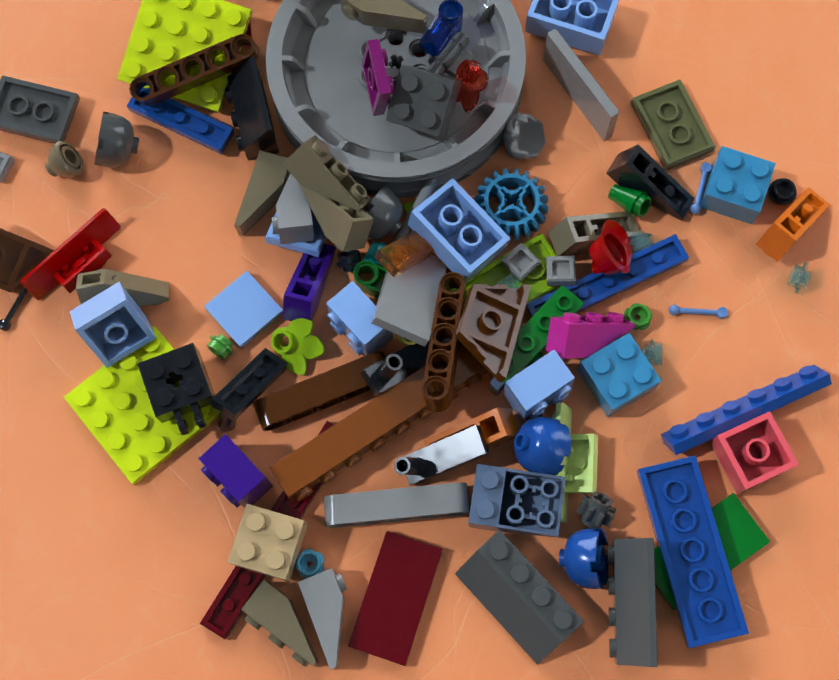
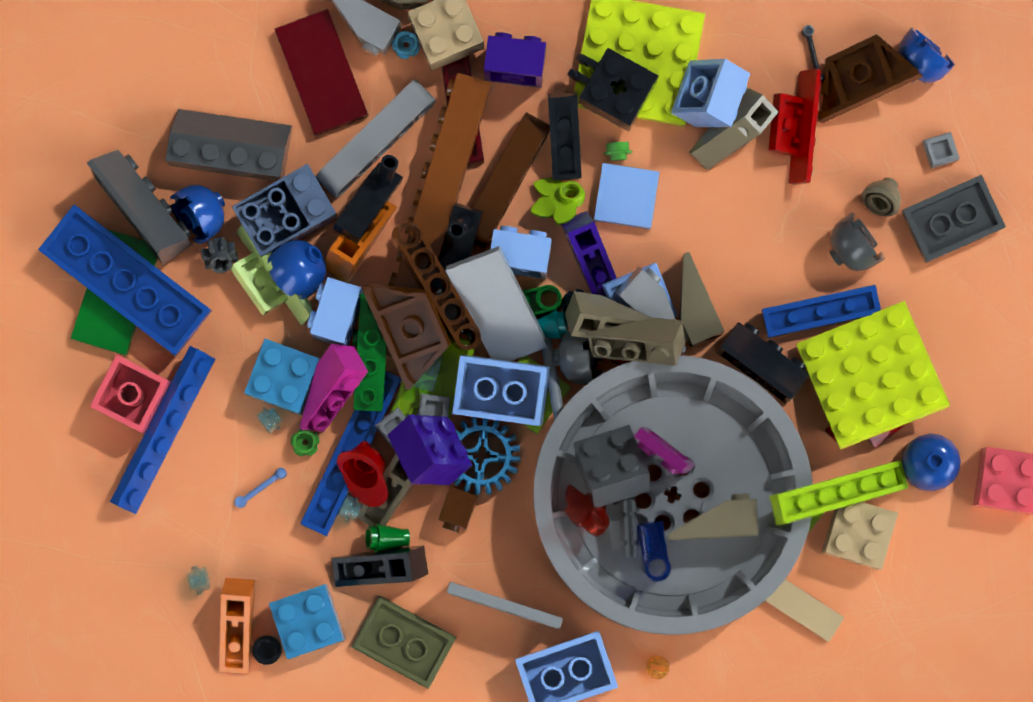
camera: 140 degrees right, 10 degrees up
(182, 67) = (836, 340): reddish brown beam -> none
(404, 253) = (528, 334): clear orange plate -> none
(523, 136) = (516, 522): light grey hair -> none
(550, 221) = (429, 450): none -> dark purple brick
(560, 180) = (457, 509): none -> reddish brown brick
(705, 169) = (346, 623): medium blue hinge -> none

